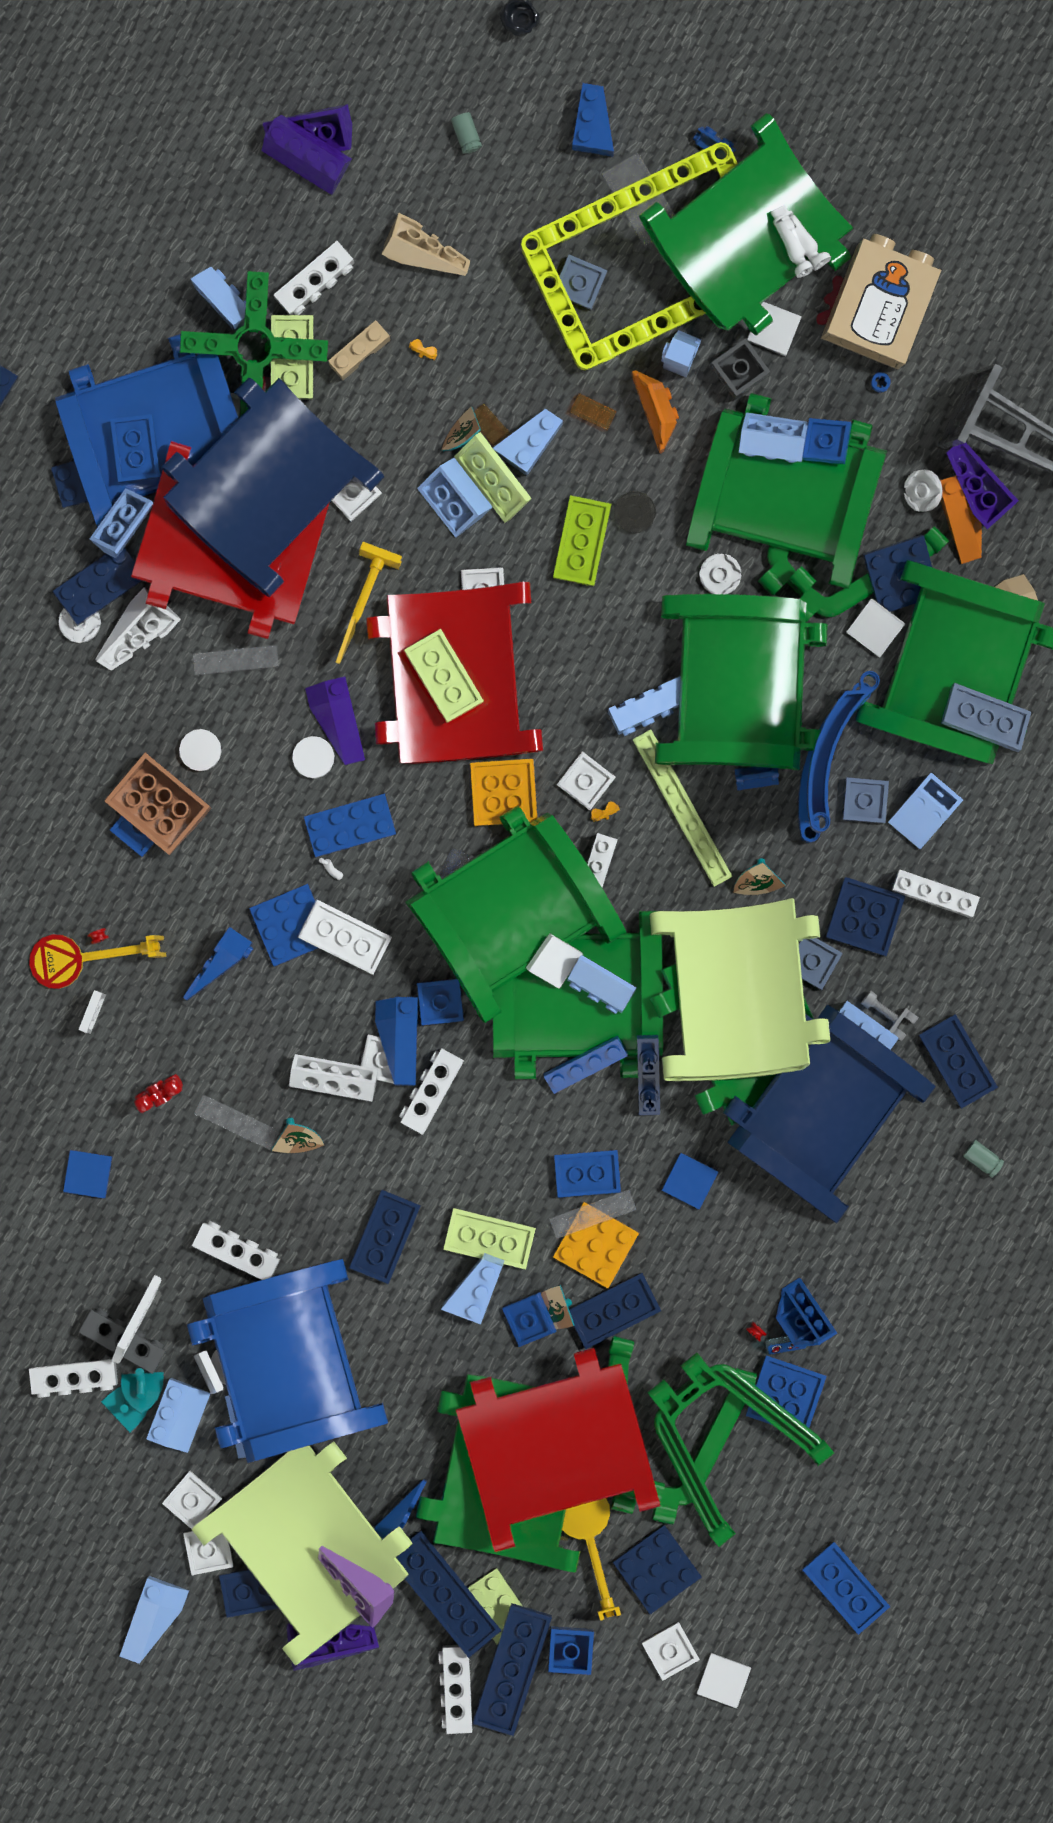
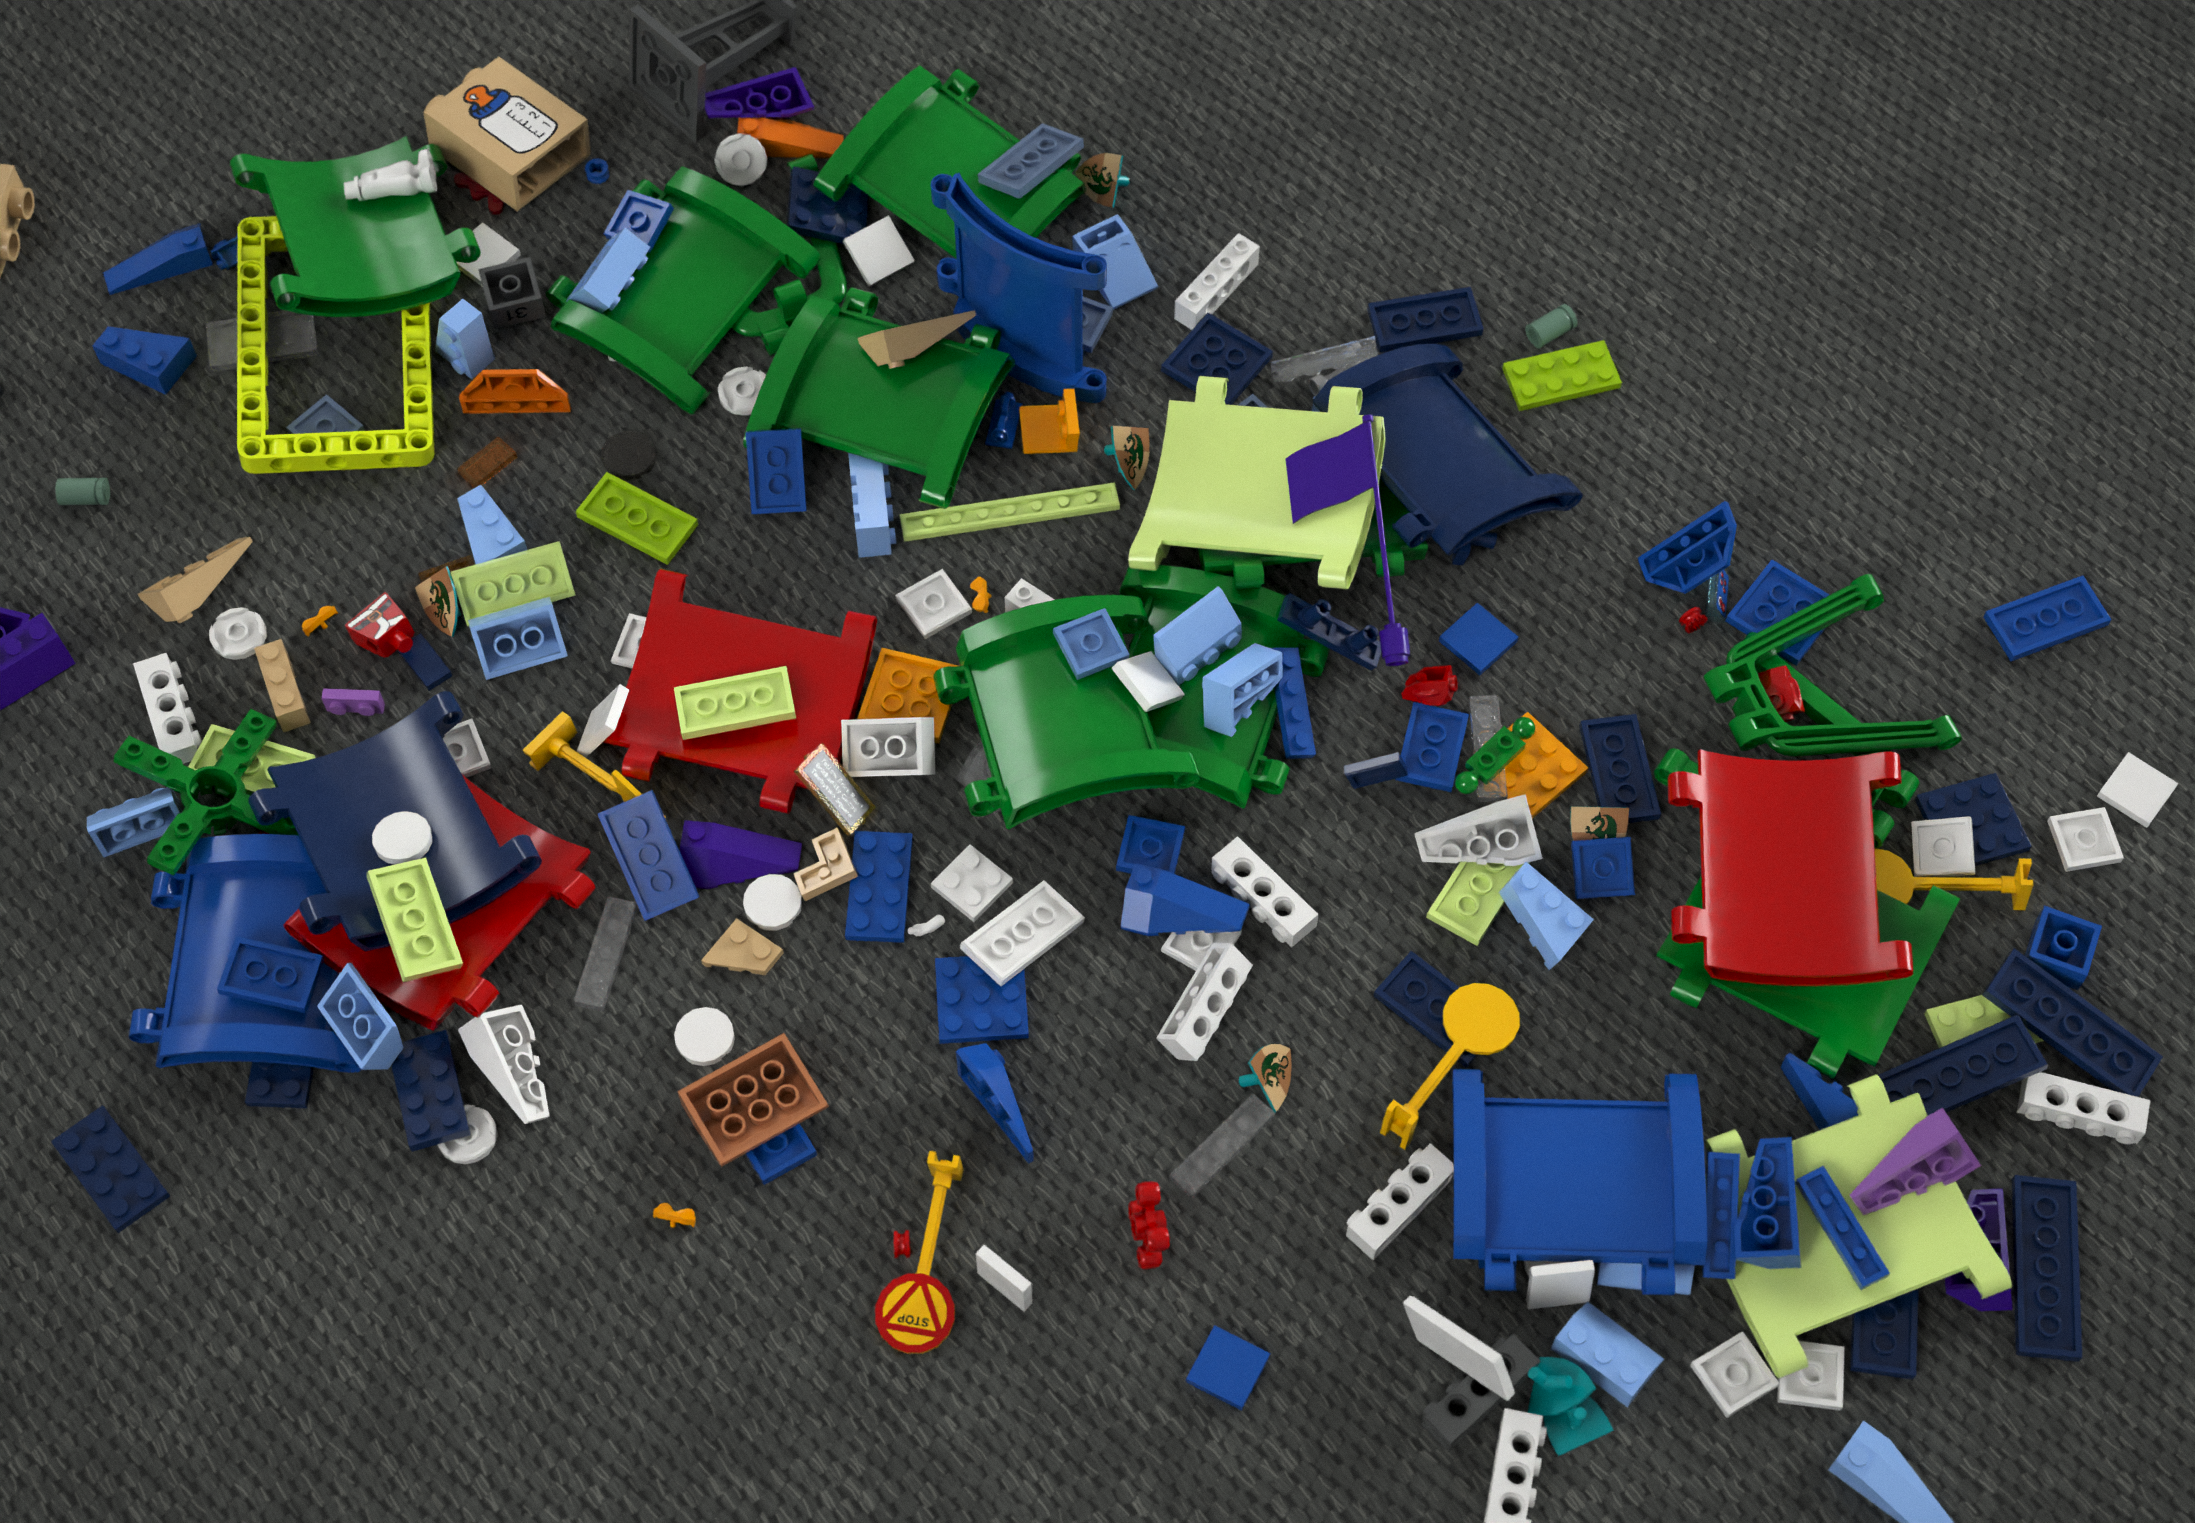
camera: 75 degrees left, 25 degrees down
(70, 787) = (683, 1216): none -> light orange piece
(193, 532) = (414, 919): none -> yellowish green plate
(256, 494) = (402, 837): none -> white tile
(271, 751) = (743, 950): none -> tan wing
(284, 1465) = (1722, 1212): none -> blue plate
(294, 1496) = (1768, 1218): none -> blue wedge
(299, 1546) = (1842, 1228): none -> blue plate
(309, 662) = (648, 855): none -> blue plate
(332, 1687) = (2046, 1268): none -> dark blue plate
(350, 790) = (832, 869): none -> tan plate
(366, 413) = (358, 701): none -> medium lavender plate
(374, 888) = (972, 883): none -> white plate
(380, 1267) = (1477, 1021): none -> yellow piece
(394, 303) = (242, 639): none -> white tile
(402, 588) = (603, 721): none -> white tile
(404, 770) = (834, 789): none -> piece
(415, 439) = (426, 663): none -> dark blue tile
(428, 400) = (381, 628): none -> red torso
(451, 795) = (888, 746): none -> white slope
(526, 1237) = (1486, 835): none -> white wedge
(549, 1140) = (1375, 770): none -> dark blue tile
(564, 912) = (1090, 643): none -> medium blue plate
(575, 1025) = (1237, 685): none -> light blue wedge
(584, 1221) = (1495, 755): none -> green plate
(624, 1552) = (1943, 847): none -> white tile
(634, 1158) = (1431, 686): none -> red hand
(648, 629) = (776, 471): none -> blue plate
(690, 92) = (168, 257): none -> blue wedge
(707, 1409) = (1782, 692): none -> red hand
(756, 1044) = (1332, 475): none -> dark purple flag
(762, 811) = (1050, 426): none -> light orange bracket
(777, 685) = (908, 341): none -> tan wedge
(888, 997) = (1316, 361): none -> clear plate
(943, 1178) = (1561, 375): none -> lime plate
(1002, 774) = (1102, 177): none -> shield

